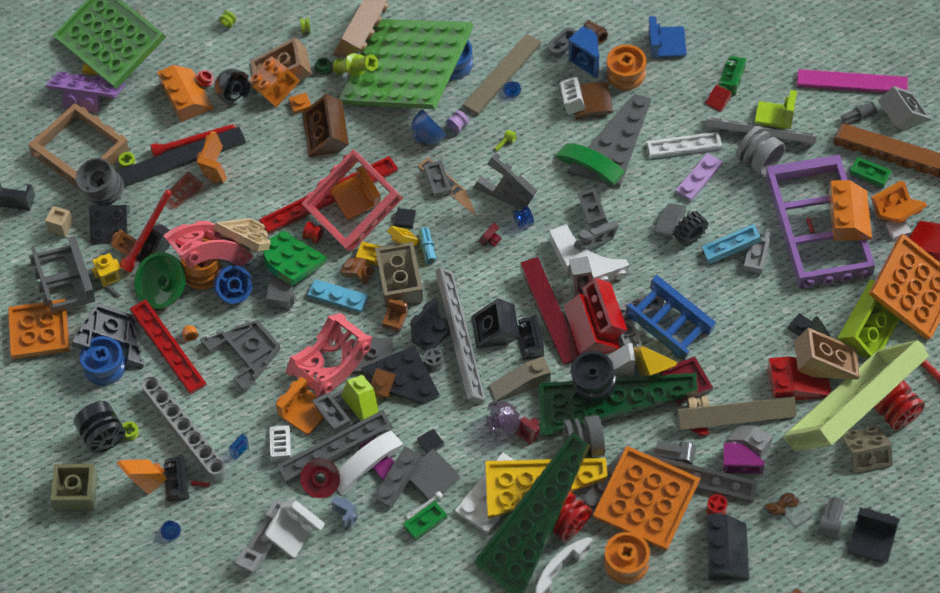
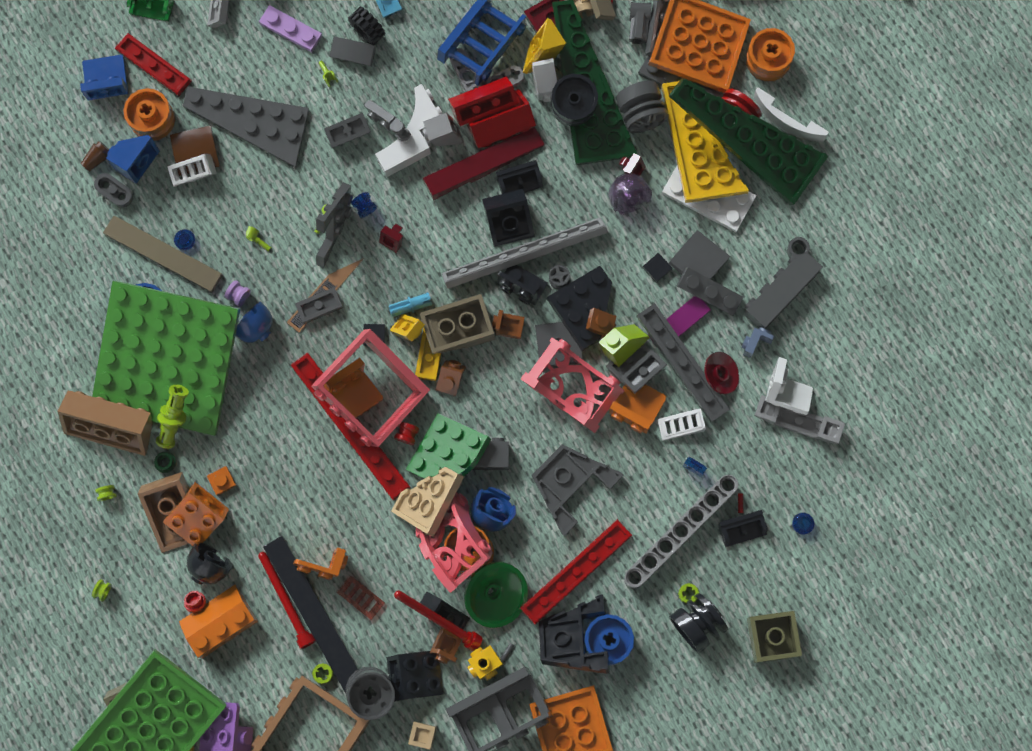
camera: 95 degrees left, 20 degrees up
(143, 473) = (753, 559): orange slope -> none
(188, 331) = (554, 550): orange hinge -> none
(325, 126) = (257, 443): reddish brown slope -> none
(338, 296) = (486, 393): medium azure plate -> none
(366, 459) = (693, 325): white slope -> none
(392, 543) = (785, 287): none -> dark grey hinge
(425, 520) = (753, 259): green plate -> none
(438, 495) = (746, 275): white hinge -> none
(521, 379) = (573, 182): dark tan slope -> none
(592, 160) = (283, 141): green slope -> none
(648, 201) = (328, 75): none -> lime hand
(675, 76) = (153, 64): none -> red tile
(684, 145) = (248, 48): white tile -> none
(718, 98) = (182, 16): red slope -> none

